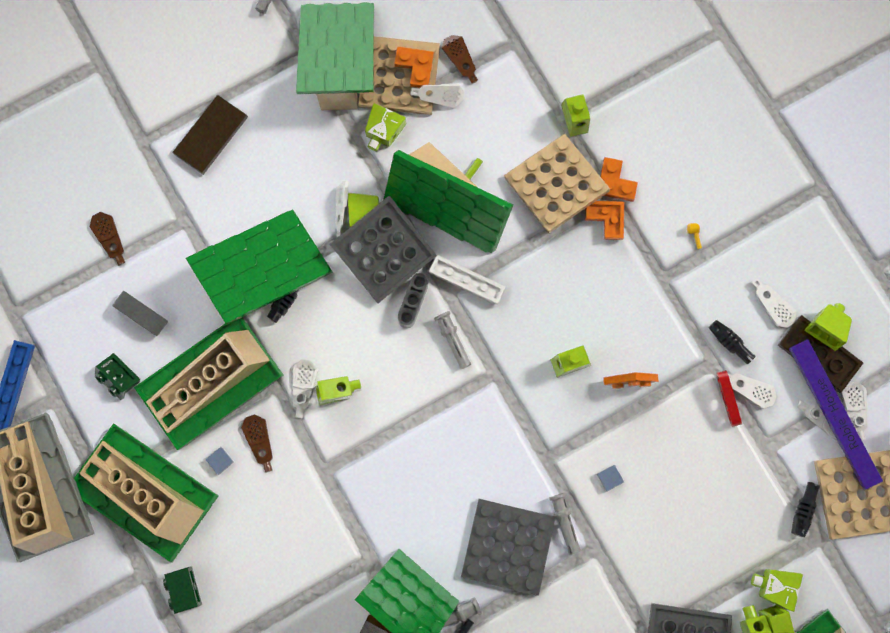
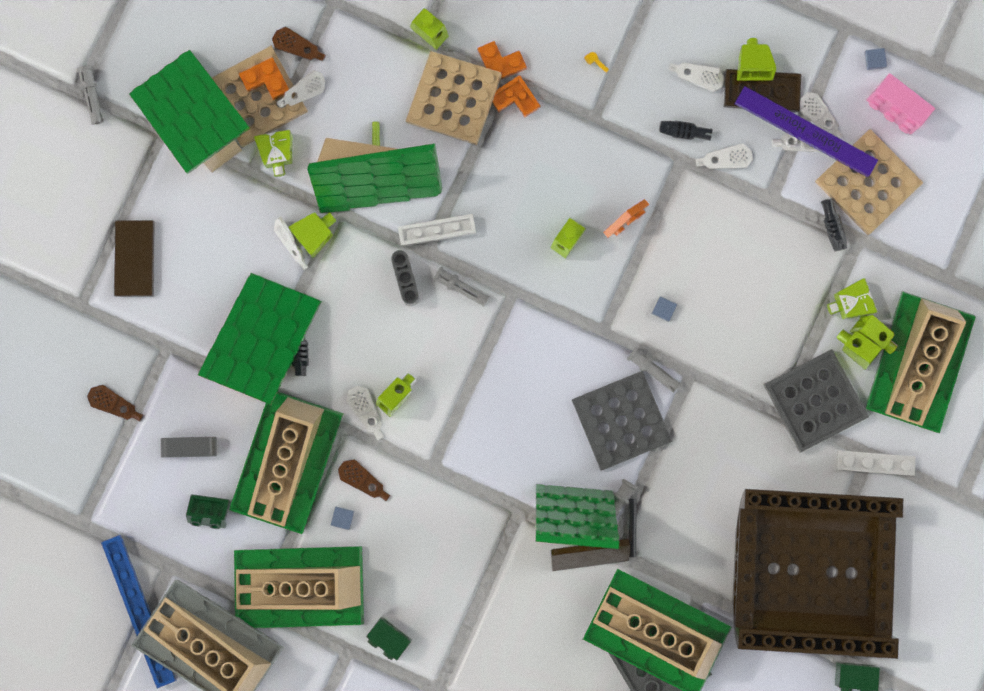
camera: 35 degrees left, 5 degrees up
(408, 266) = (321, 254): dark grey piece -> none
(729, 398) = (714, 178): red beam -> none

